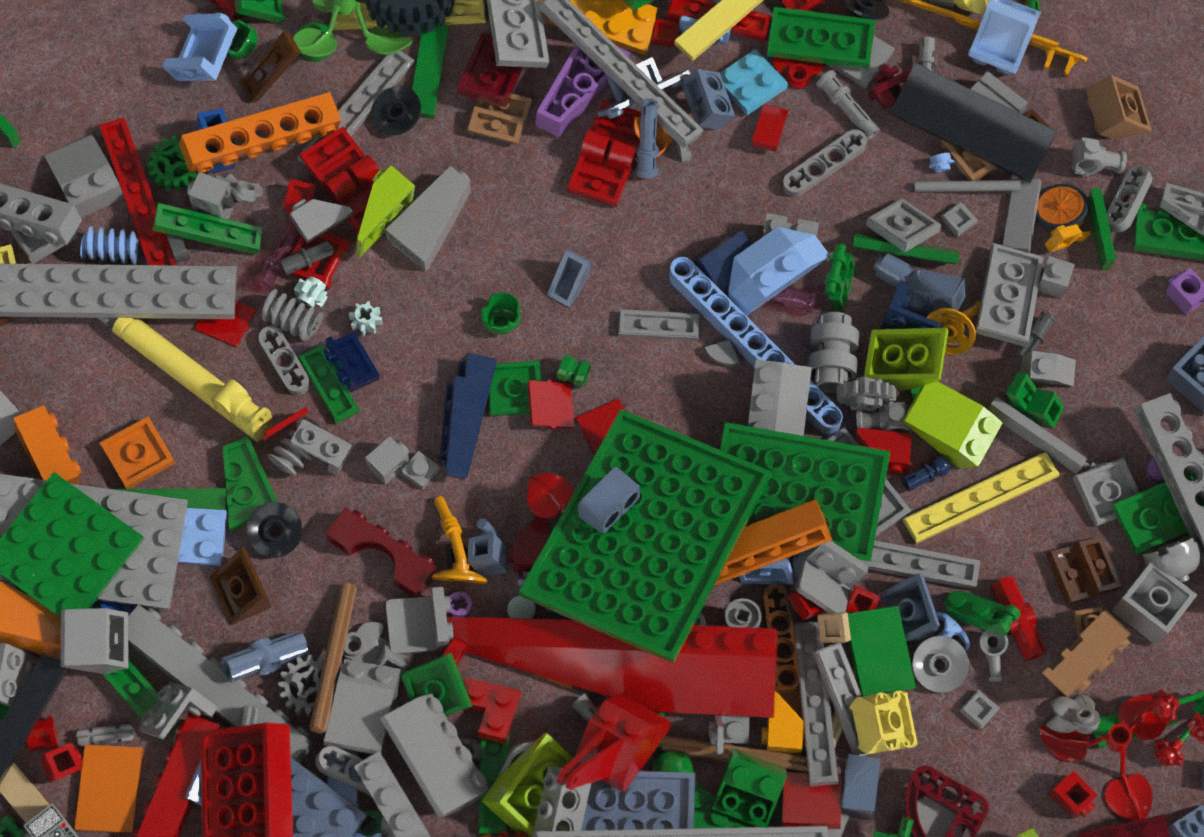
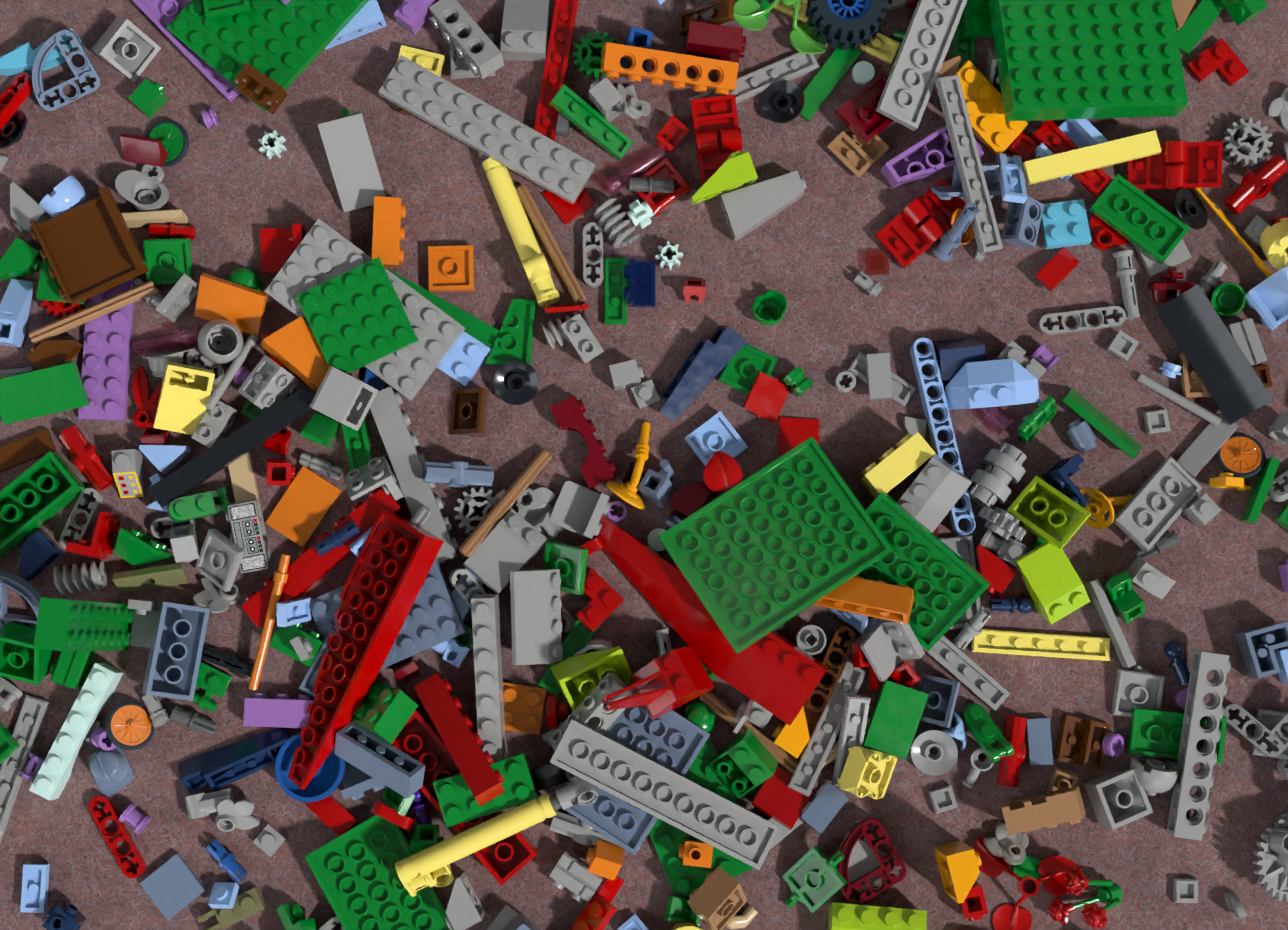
camera: 30 degrees right, 15 degrees up
(85, 694) = (320, 430): none -> green slope
(110, 246) = (514, 96): light blue piece -> none
(167, 794) = (337, 538): none -> dark blue pin
(229, 371) = (550, 244): none -> medium nougat axle
(293, 83) = (716, 41): none -> dark red brick
(317, 217) = (675, 159): light grey slope -> none
(410, 336) = (694, 287): none -> red tile
(462, 44) = (863, 72): none -> light aqua tile
(515, 471) = (715, 436): none -> light blue plate
(569, 278) = (835, 307): sand blue slope -> none
(585, 215) = (877, 263): none -> clear red tile
(589, 239) = (868, 284): none -> light grey pin
(608, 500) = (761, 506): sand blue piece -> none
(624, 354) = (851, 385): none -> light grey bush
(654, 321) = (879, 376): none -> light grey tile
(672, 63) = (1011, 178): none -> light blue plate
(724, 394) = (896, 464): none -> light yellow brick
(810, 214) = (1045, 356): none -> medium lavender bush
(834, 627) = (871, 686): tan plate -> none
(880, 165) = (1122, 346): none -> light grey plate
(901, 515) = (972, 627): none -> light grey pin
(903, 225) = (1110, 405): light grey tile -> none
(940, 289) = (1101, 472): sand blue piece -> none
(954, 63) = (1230, 295): none -> green hair
(1036, 763) = (957, 868): none -> light orange slope
(1040, 594) = (1039, 741): none -> sand blue tile
(1116, 554) = (1113, 744): none -> medium lavender tile
(1117, 429) = (1174, 651): none -> dark blue pin

